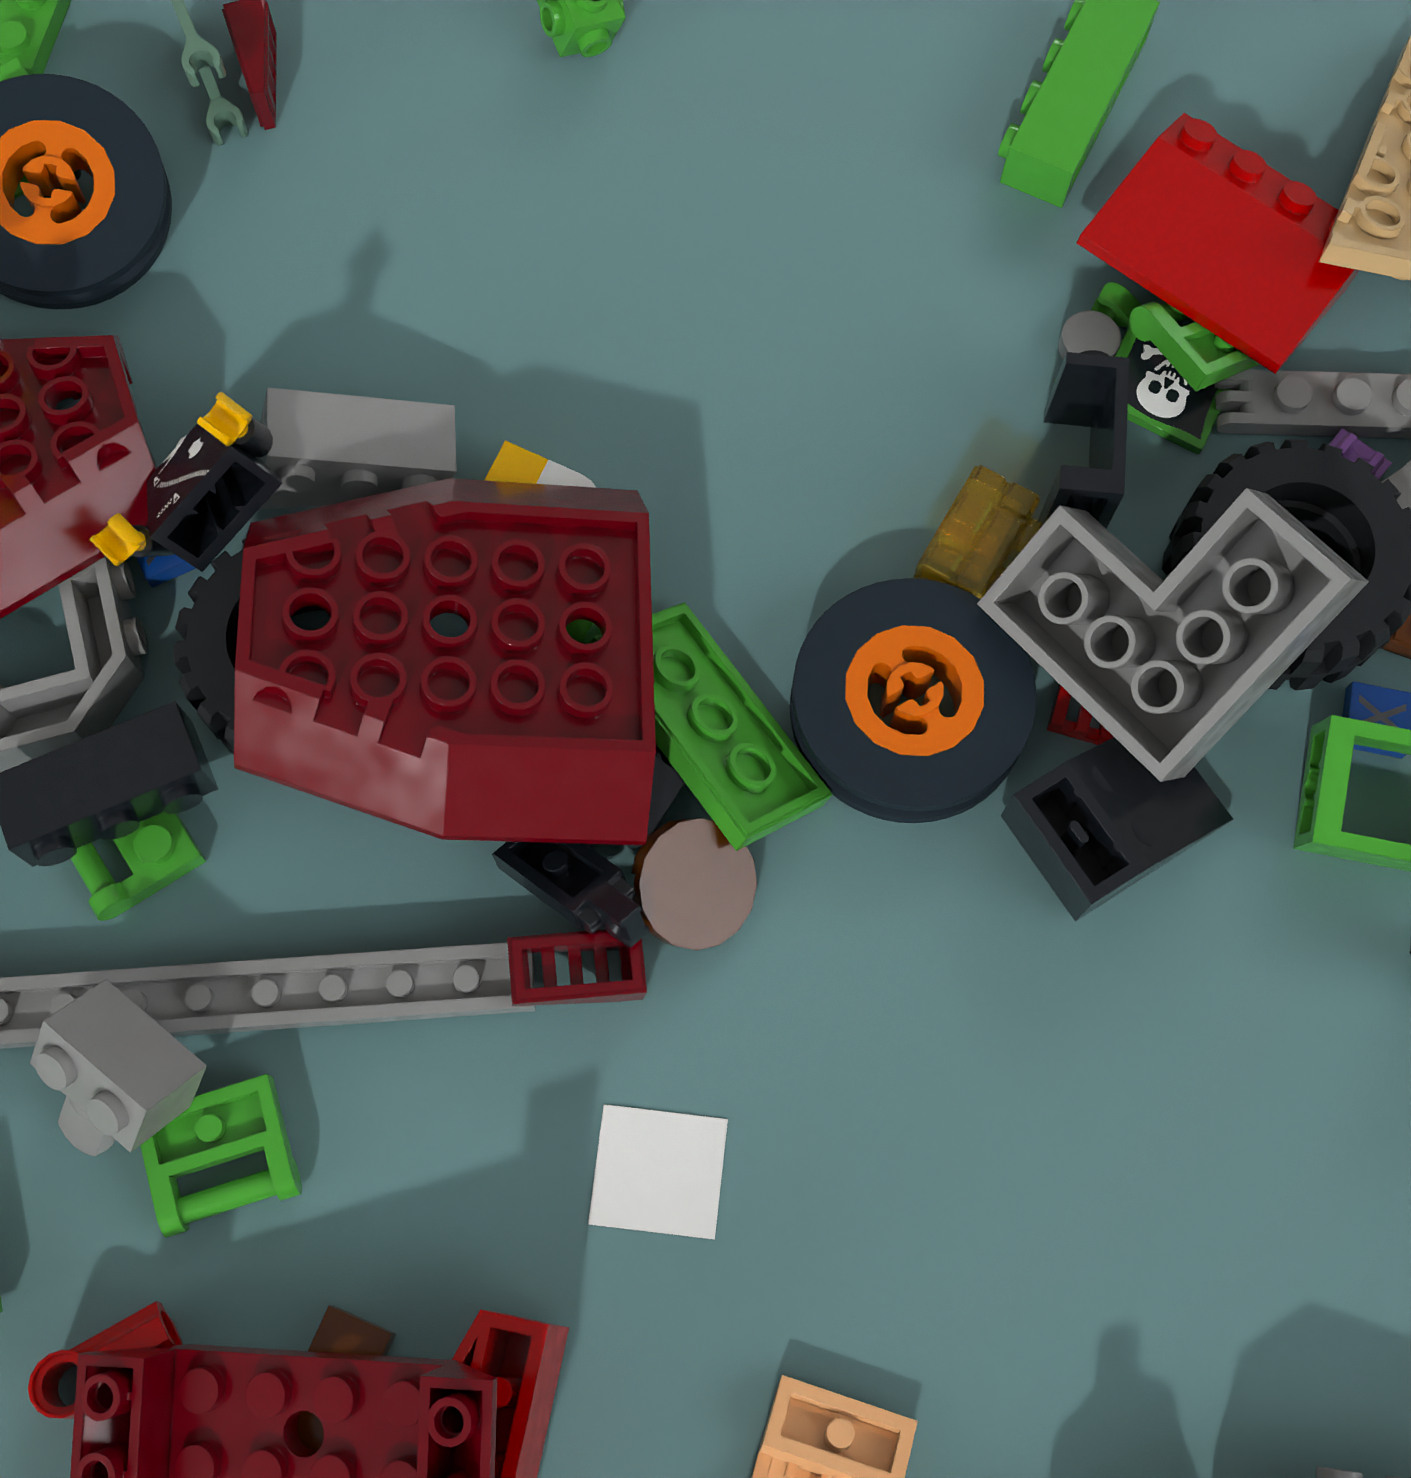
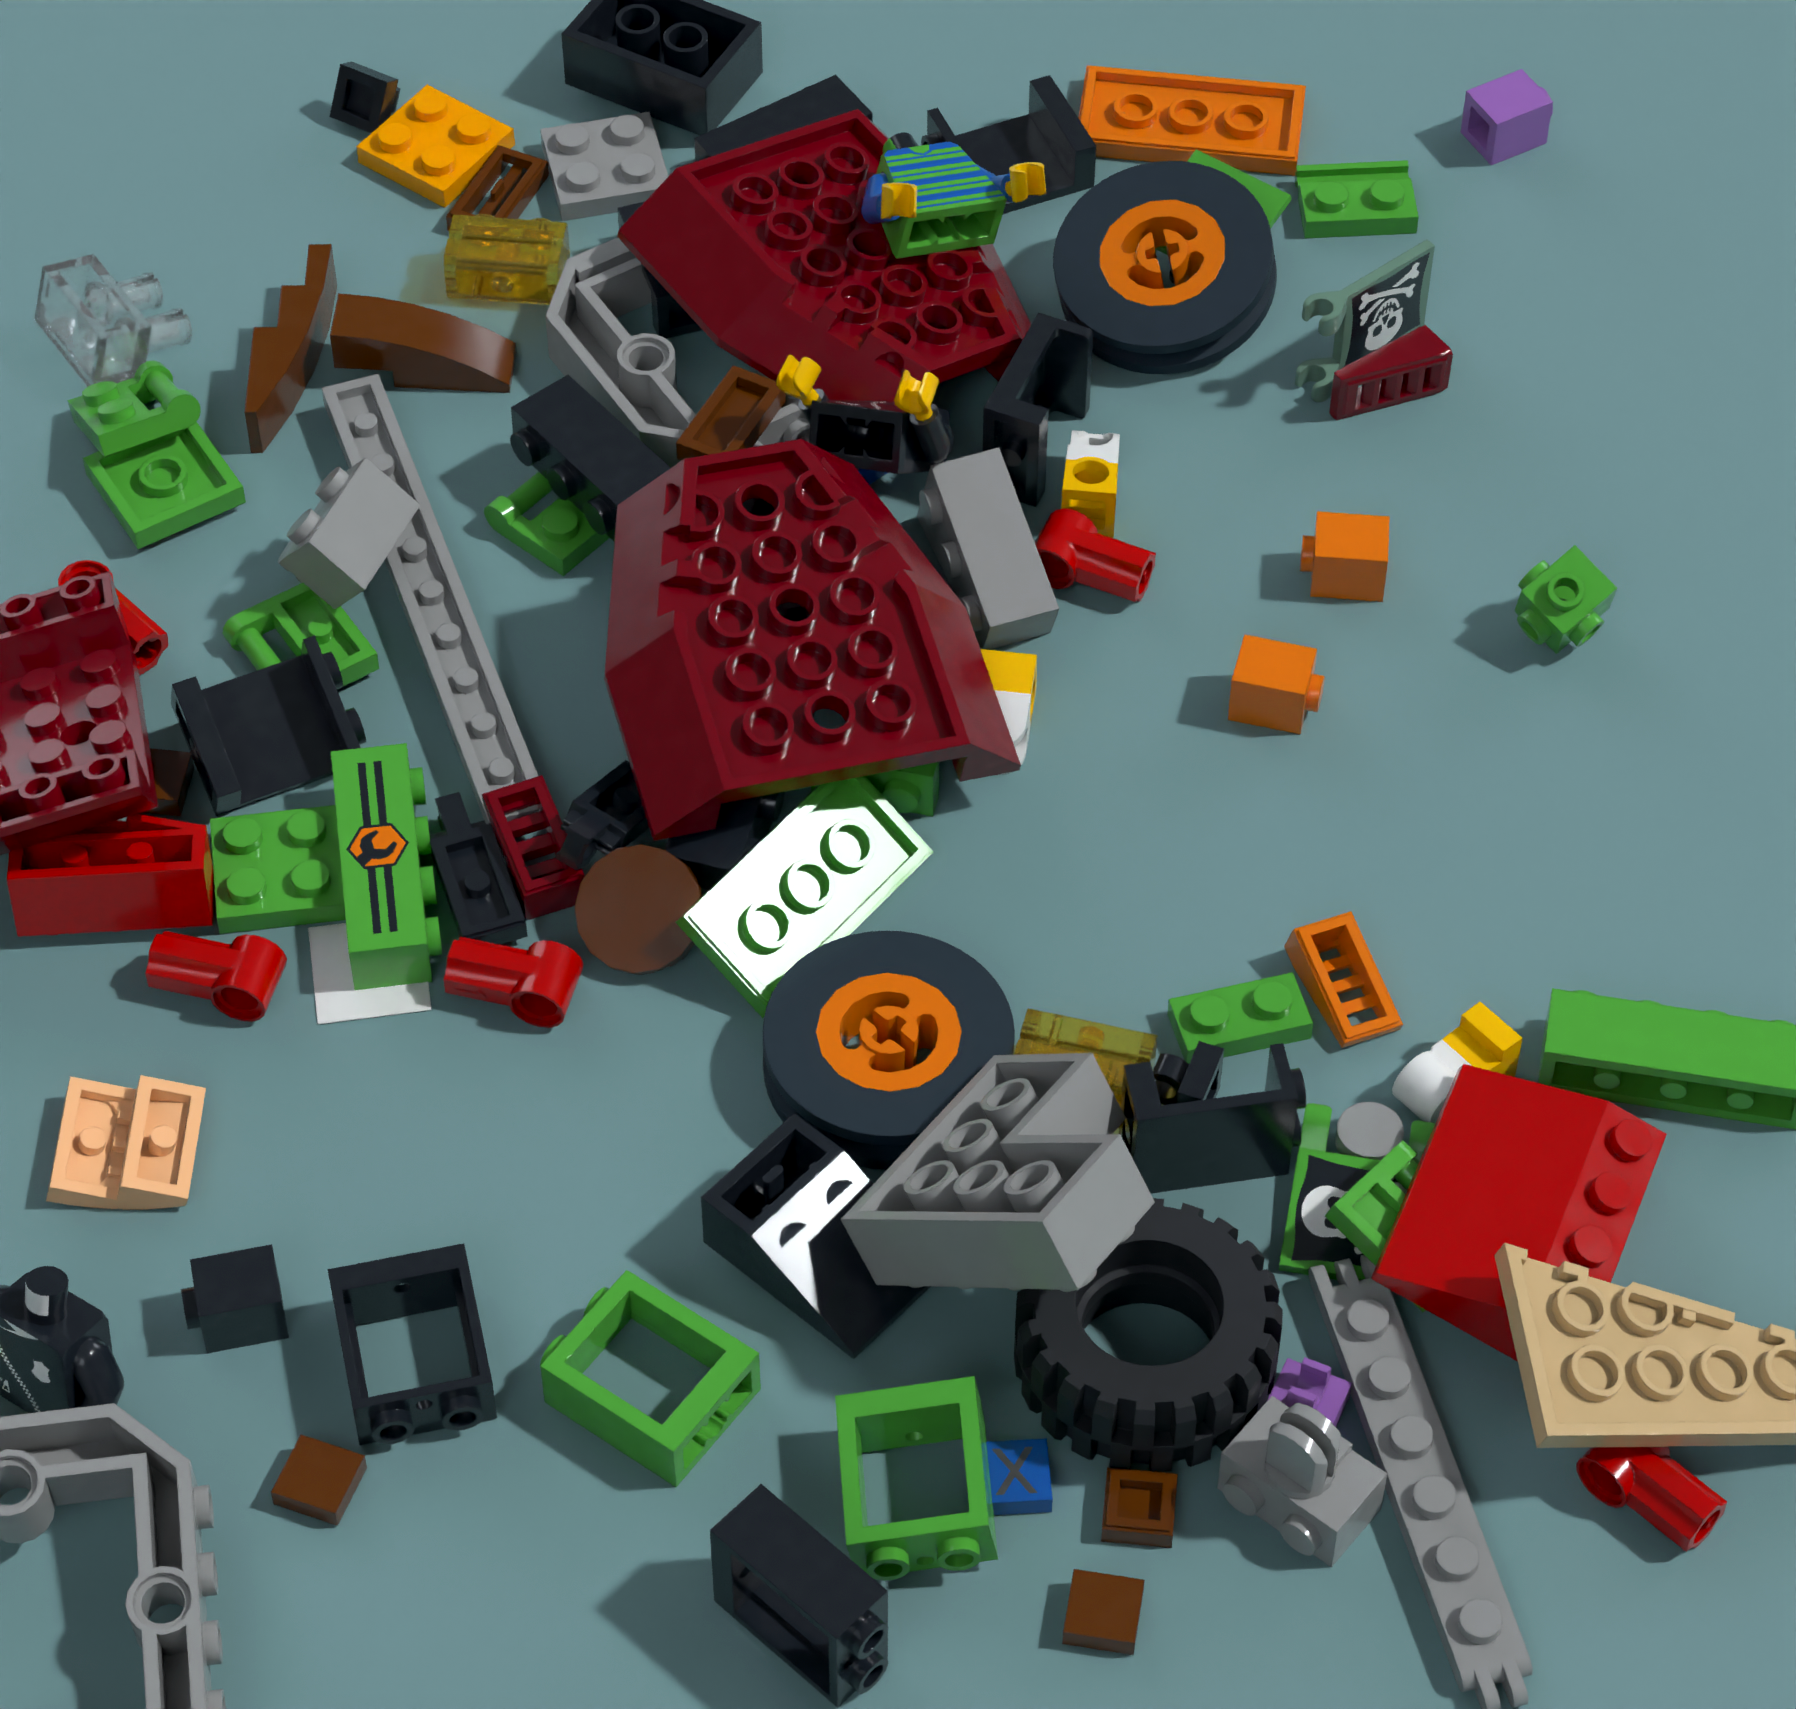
camera: 75 degrees right, 20 degrees down
(104, 635) = (732, 415): none -> reddish brown tile
(161, 344) = (1043, 376): none -> black panel
(288, 339) = (1092, 478): none -> yellow leg
(333, 1213) = (267, 728): none -> black panel
(385, 362) = (1078, 553): none -> red piece
(460, 157) = (1347, 556): none -> orange brick
(509, 1240) = (277, 869): none -> bright green plate
(551, 1127) = (381, 866): none -> bright green brick
(588, 262) = (1274, 684): none -> orange brick
(590, 1038) = (475, 876): none -> black hinge
(645, 1321) = (233, 976): none -> red piece
(738, 1012) = (530, 981): none -> red piece
(887, 318) = (1344, 935): none -> orange slope
(939, 404) = (1241, 1016): none -> bright green plate
(1021, 454) = (1189, 1082): none -> black tile
(1047, 250) = (1479, 1042): none -> leg
(1062, 1395) = (236, 1299): none -> black brick
(1229, 1199) = (427, 1283): none -> black window
(1273, 1349) = (319, 1479): none -> reddish brown tile
(1278, 963) = (701, 1417): none -> bright green window

